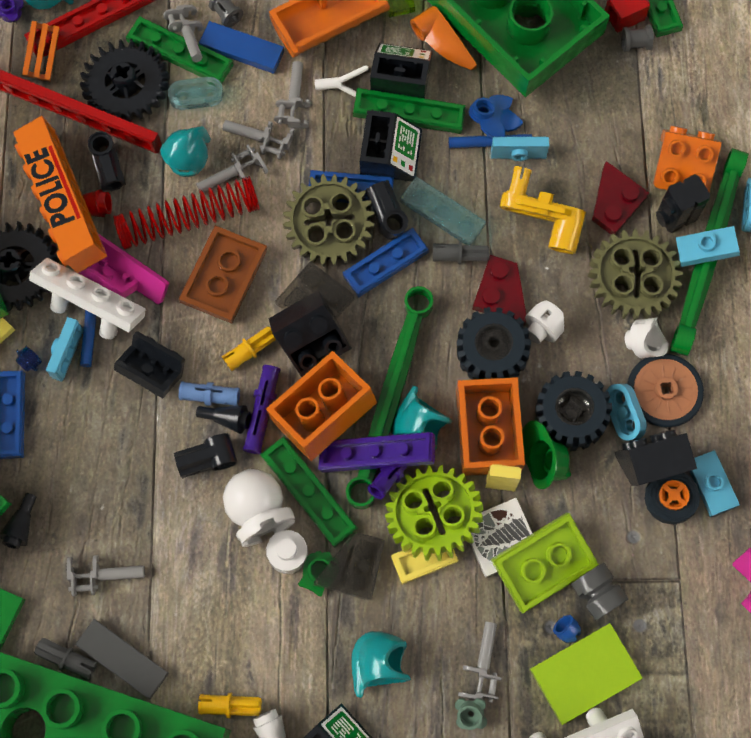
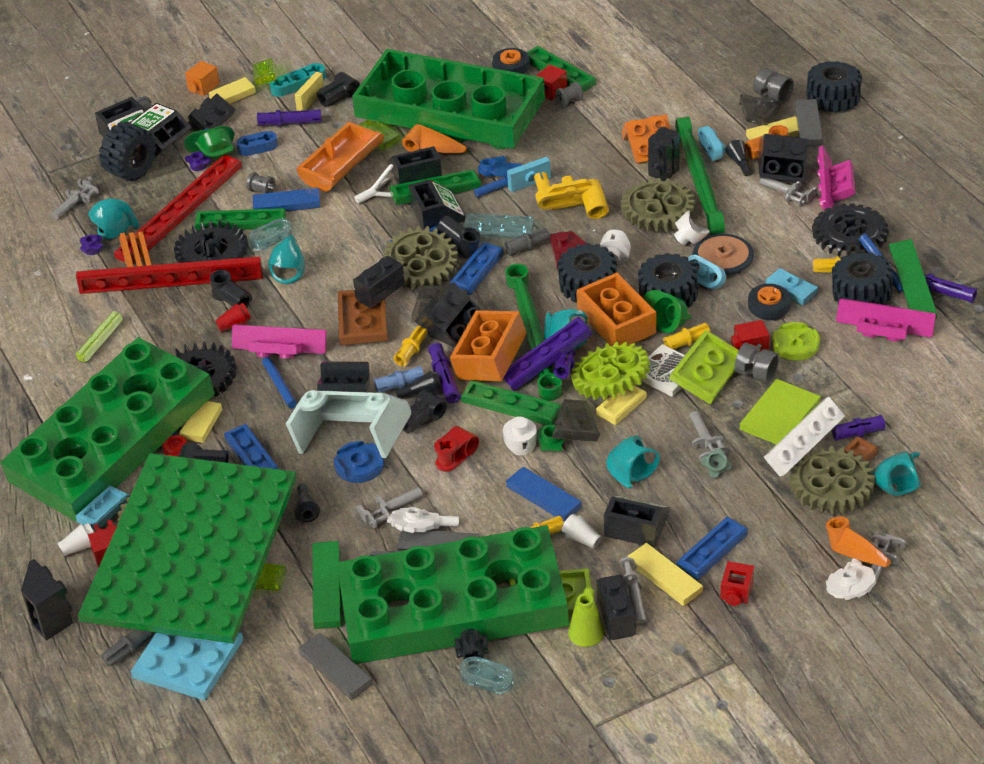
camera: 25 degrees left, 30 degrees down
(28, 359) = (246, 415): clear blue plate -> none
(59, 195) = (210, 311): orange brick -> none
(64, 349) = (269, 398): medium azure plate -> none
(74, 288) = (259, 352): white plate -> none
(107, 489) = (358, 462): none -> blue tile
(113, 614) = (418, 520): none -> white piece
(148, 460) = (383, 410): none -> light aqua windscreen
(186, 27) = (238, 203): light grey piece -> none
(212, 529) = (455, 448): none -> red piece
(234, 170) = (330, 262): light grey piece -> none
(250, 201) = (277, 317): red piece -> none
(255, 504) = (481, 413): white tile -> none
(256, 245) = (379, 281): none -> black brick
(262, 136) = (334, 239): light grey piece -> none
(267, 649) = (543, 493): none -> blue tile
(294, 100) = (346, 214): light grey piece -> none
(503, 477) = (646, 328): light yellow tile -> none
(550, 500) = (685, 337): none -> yellow axle
(567, 629) = (750, 394): blue hinge -> none
(616, 199) = (615, 176): dark red wing -> none
(616, 547) = (752, 333): none -> red brick
(658, 459) = (741, 276): black slope -> none
(667, 571) = (795, 341): none -> lime tile
(707, 246) = (696, 166): medium azure plate -> none

